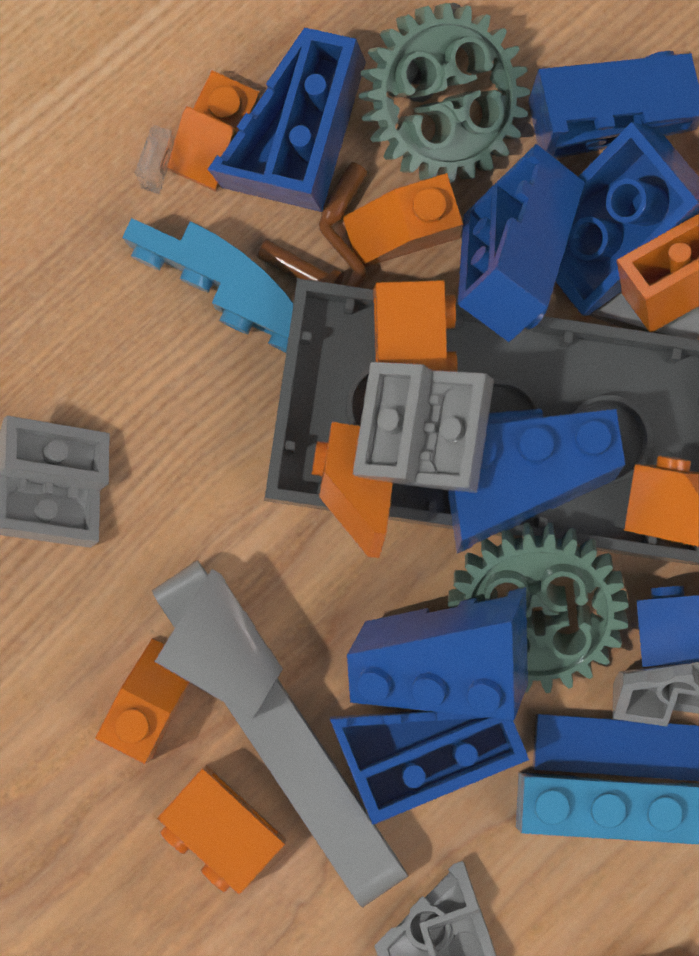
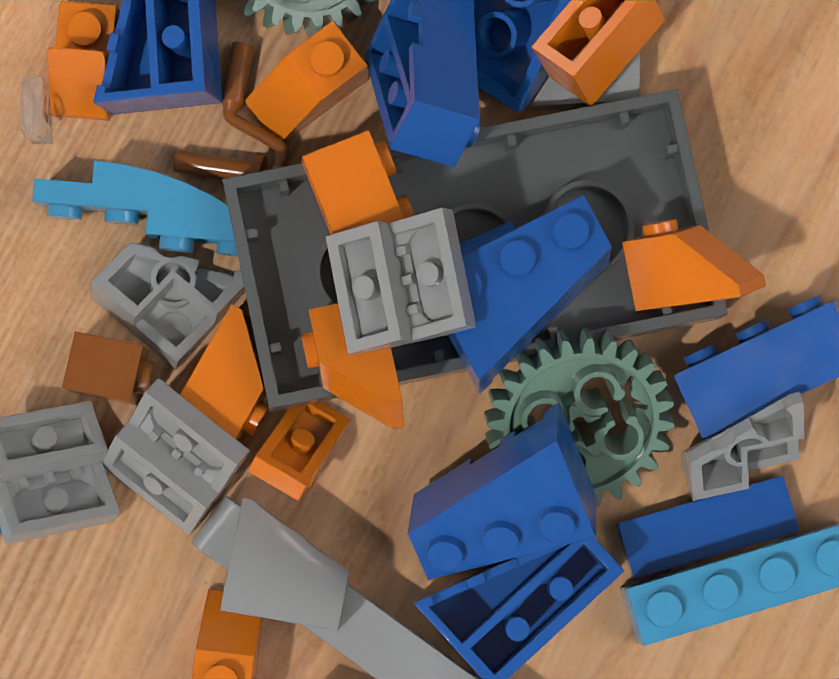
camera: 20 degrees left, 0 degrees up
(135, 410) = (108, 368): none -> dark orange brick
(165, 509) = (174, 456): none -> light grey slope
(208, 368) = (165, 299): none -> light grey slope
(237, 460) = (229, 379): none -> orange slope
(278, 542) = (299, 448): none -> orange slope

